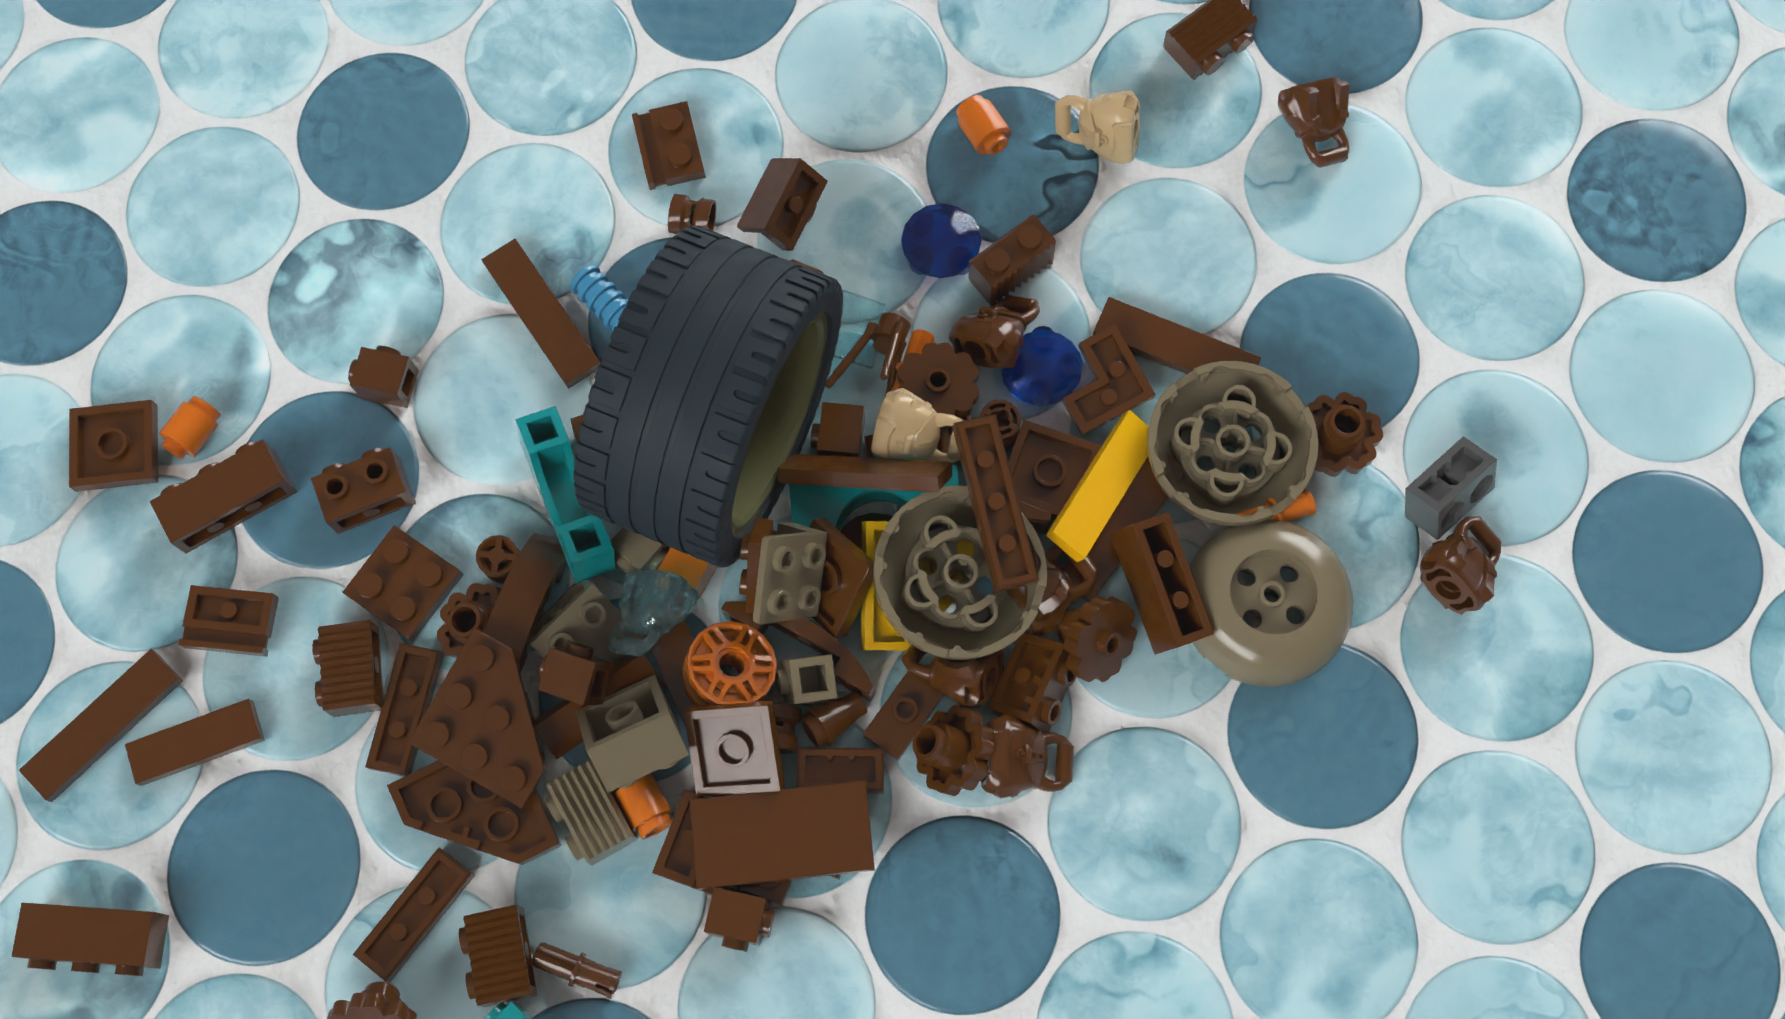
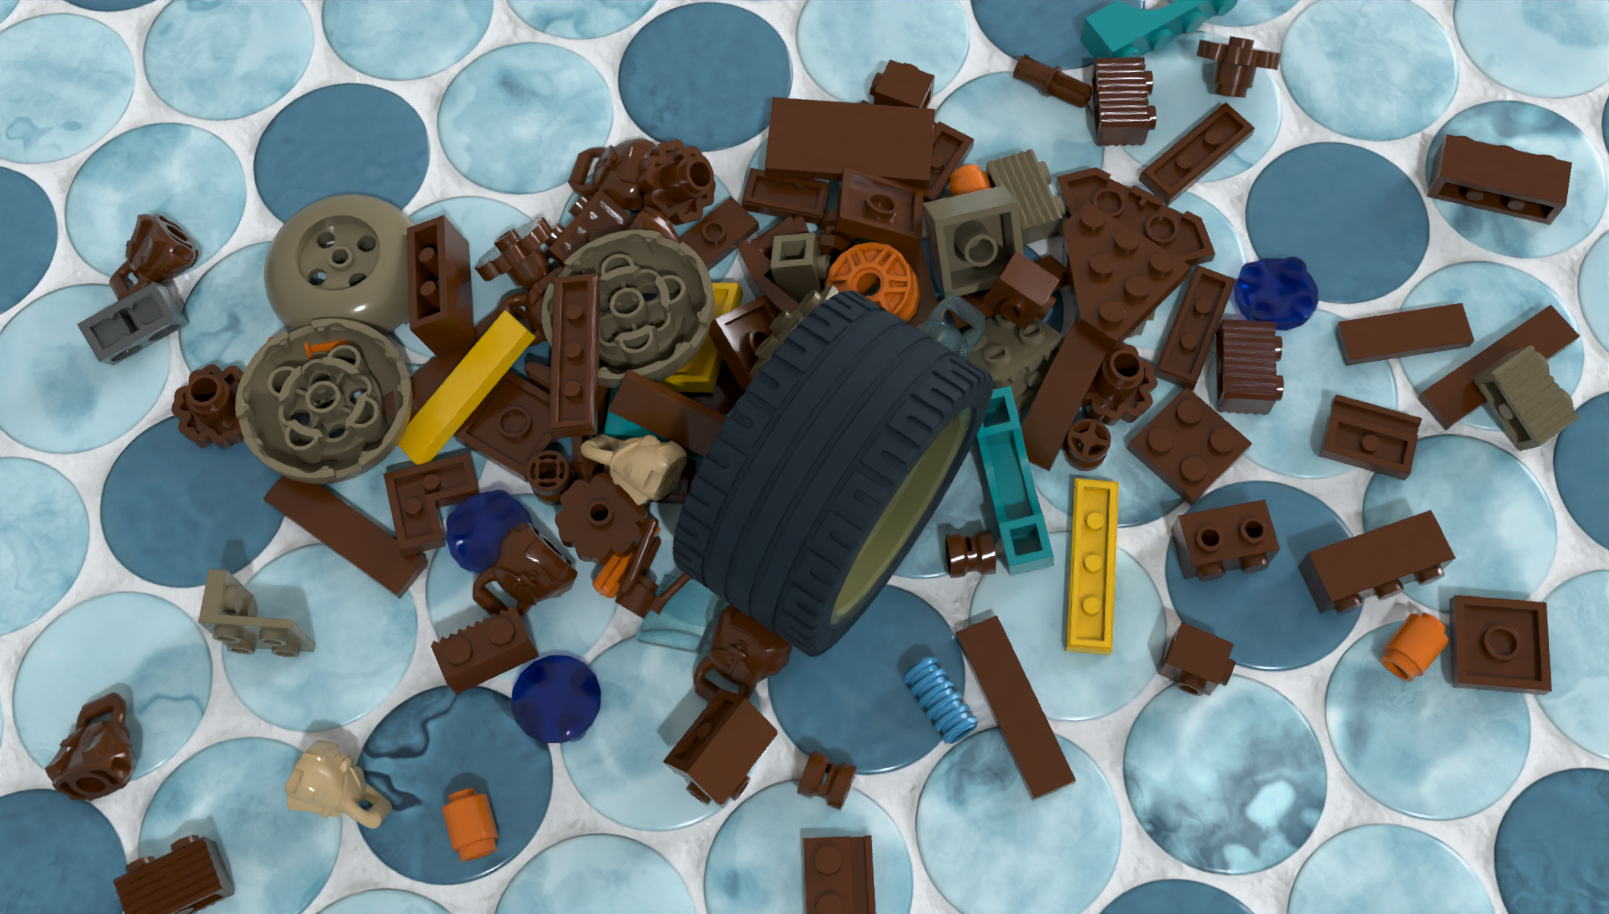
camera: 170 degrees left, 5 degrees down
(76, 682) = (1526, 397): none -> dark tan brick
(323, 759) = (1276, 292): none -> clear blue dish
(485, 452) = (1092, 567): none -> yellow tile
(1232, 223) = (230, 616): none -> dark tan bracket

